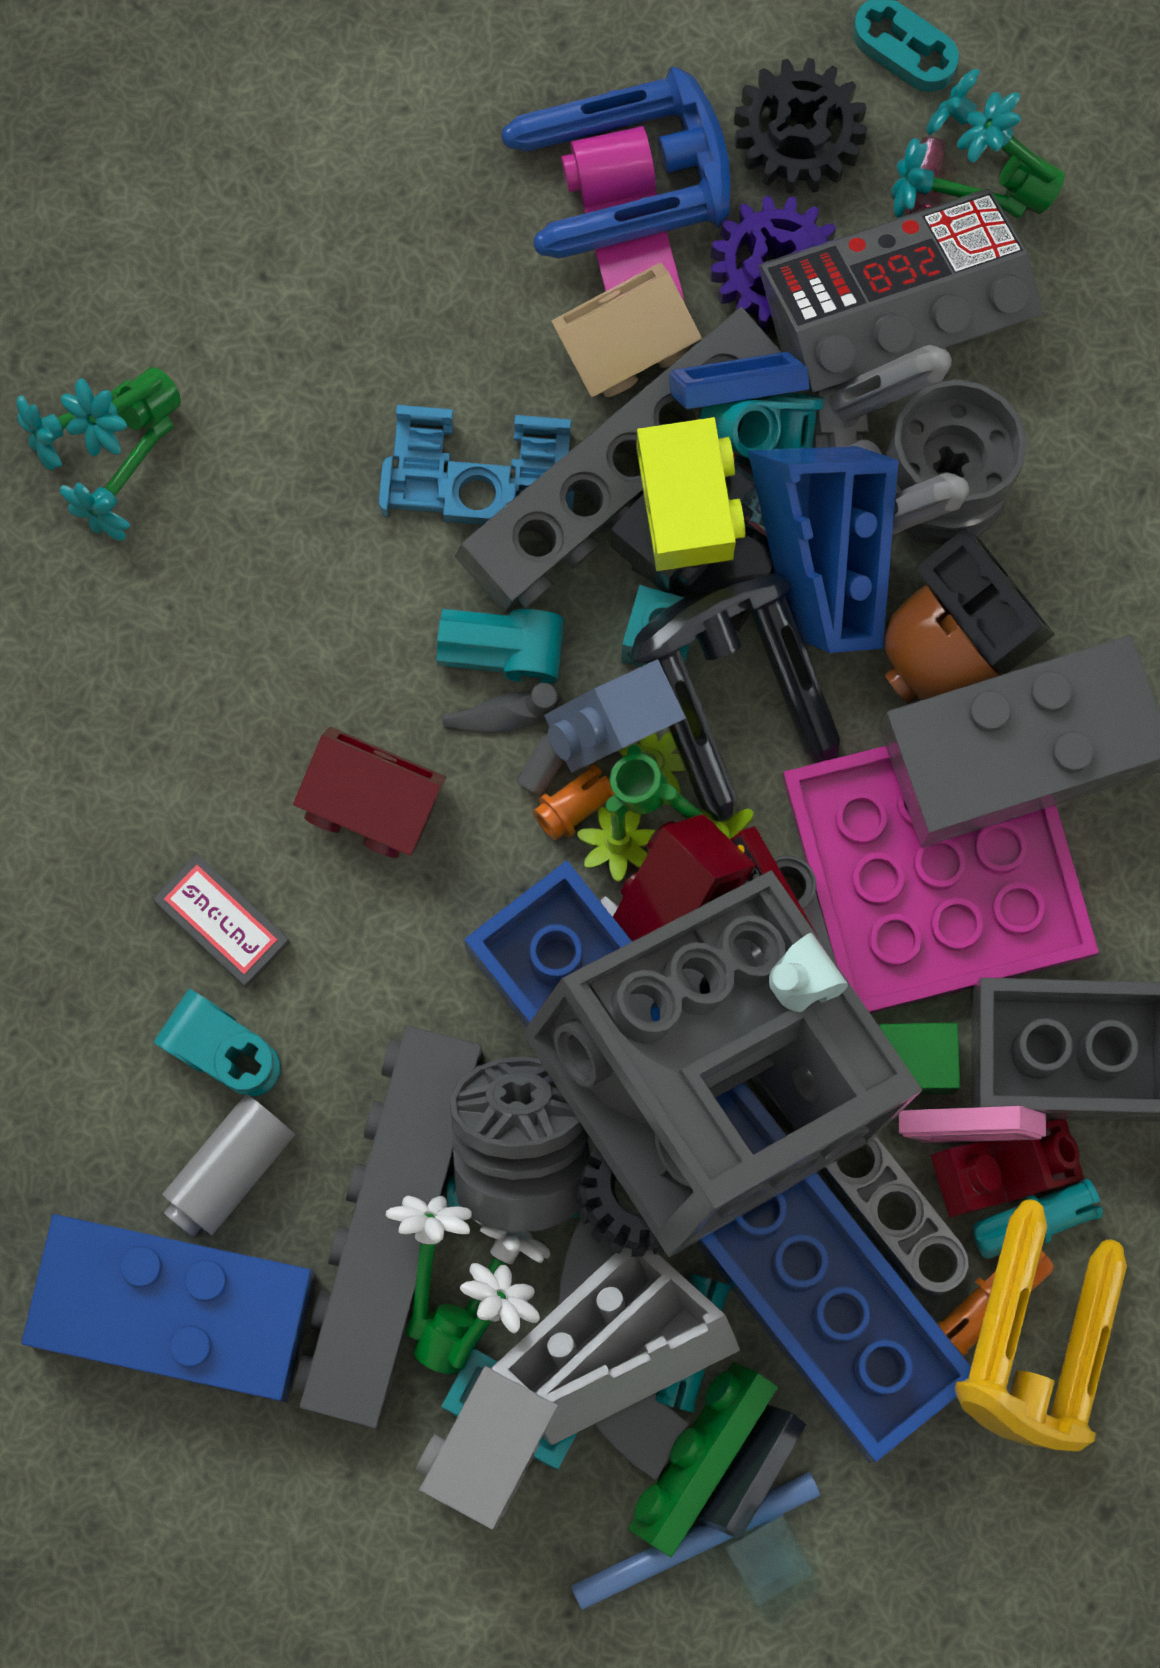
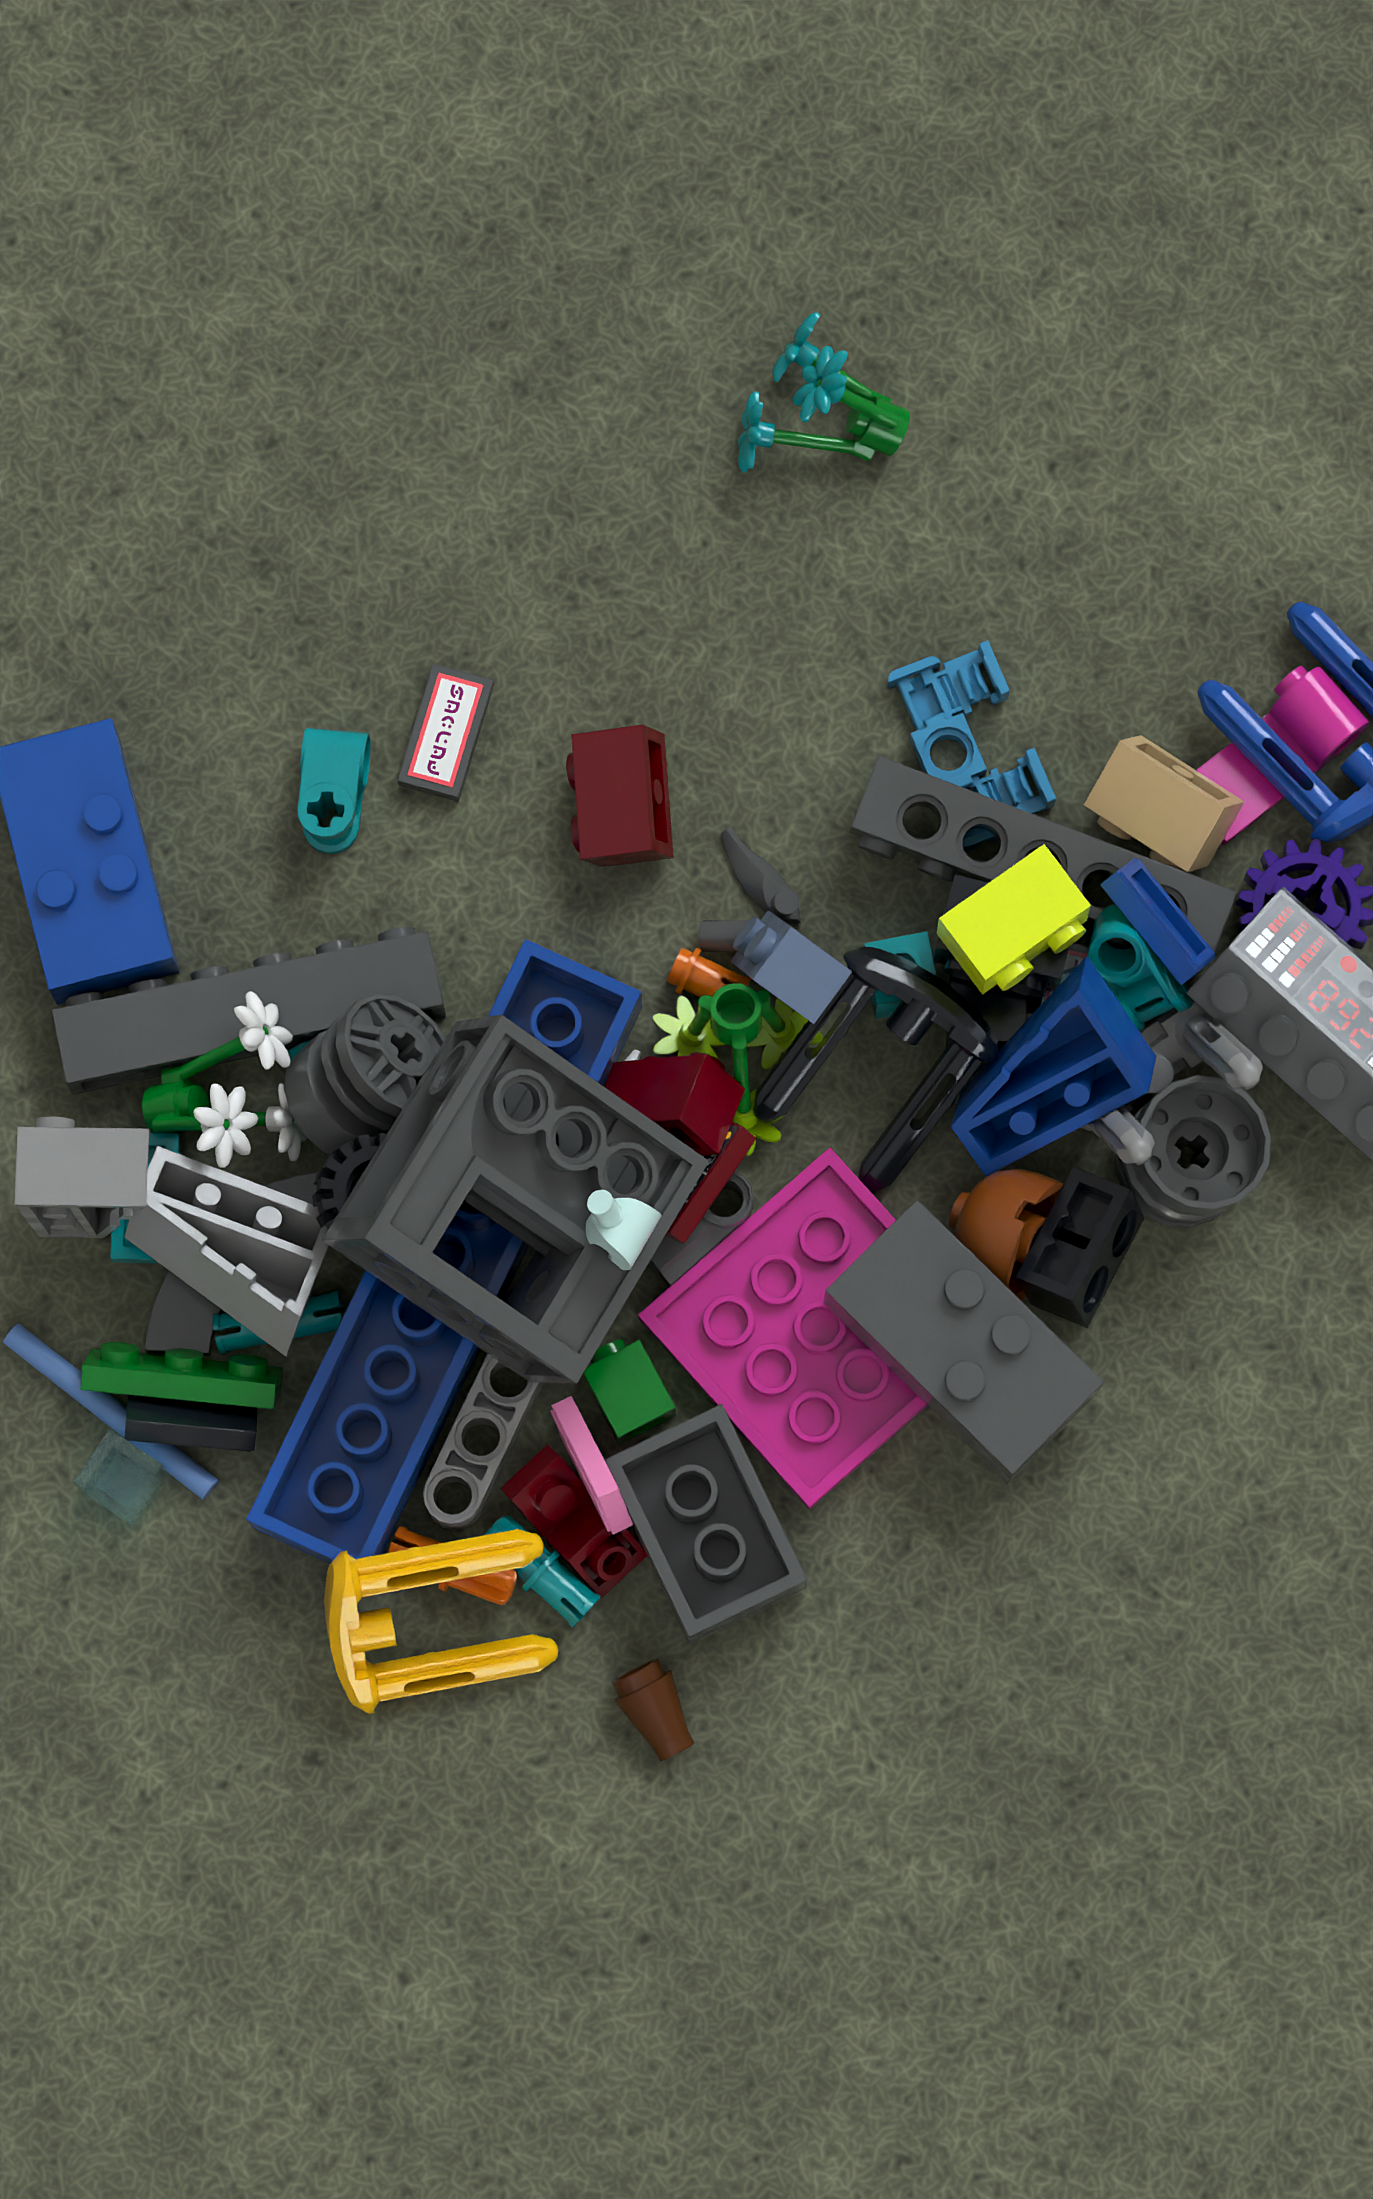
camera: 65 degrees right, 0 degrees up
(226, 1167) = (230, 846): light grey brick -> none
(515, 644) = (821, 851): teal piece -> none

